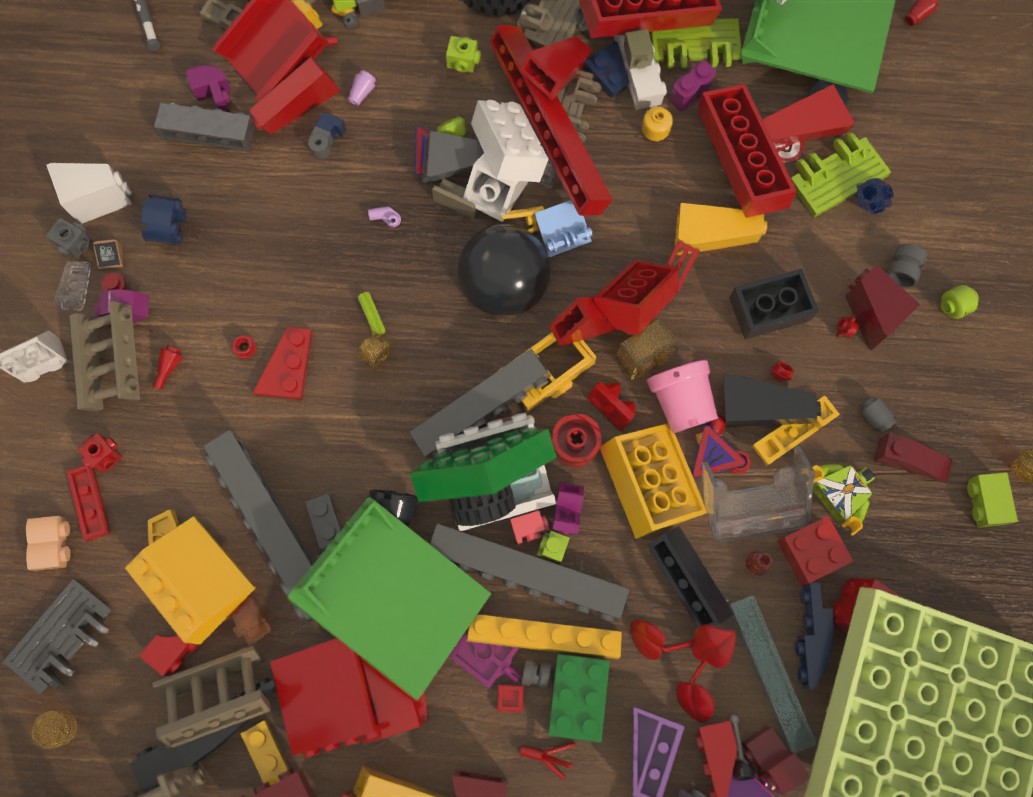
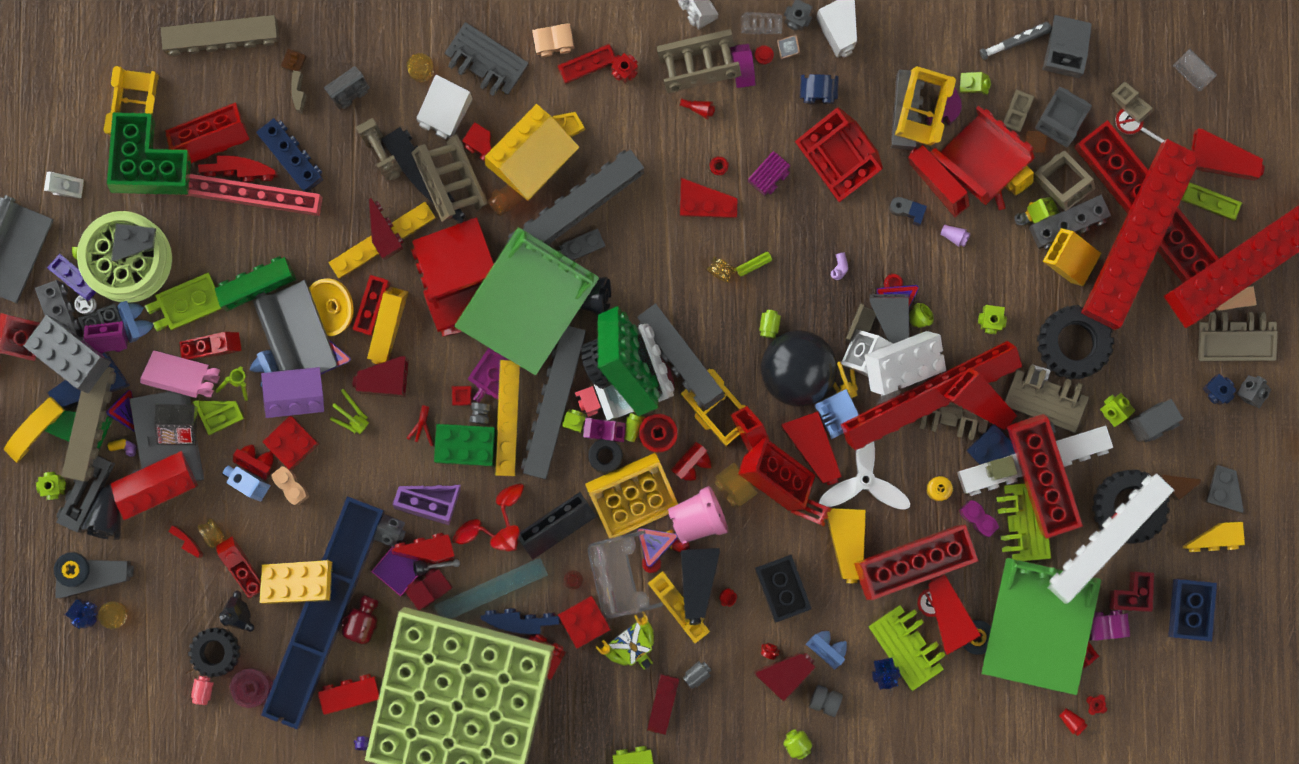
camera: 85 degrees right, 10 degrees up
(111, 698) = (444, 107): none -> white slope
(184, 55) = (975, 83): none -> lime bracket
(228, 87) = (916, 131): none -> yellow piece
(248, 204) = (840, 153): none -> red slope
(261, 286) = (769, 173): none -> magenta brick
(407, 159) = (893, 280): none -> red plate
(447, 299) = (769, 324): none -> lime brick
(564, 472) = (632, 426): none -> lime cone
(600, 258) = (813, 445): none -> red slope
(616, 510) = (607, 467): none -> black tyre
(643, 206) = (878, 488): none -> white piece
(850, 257) = (832, 654): none -> medium blue tile

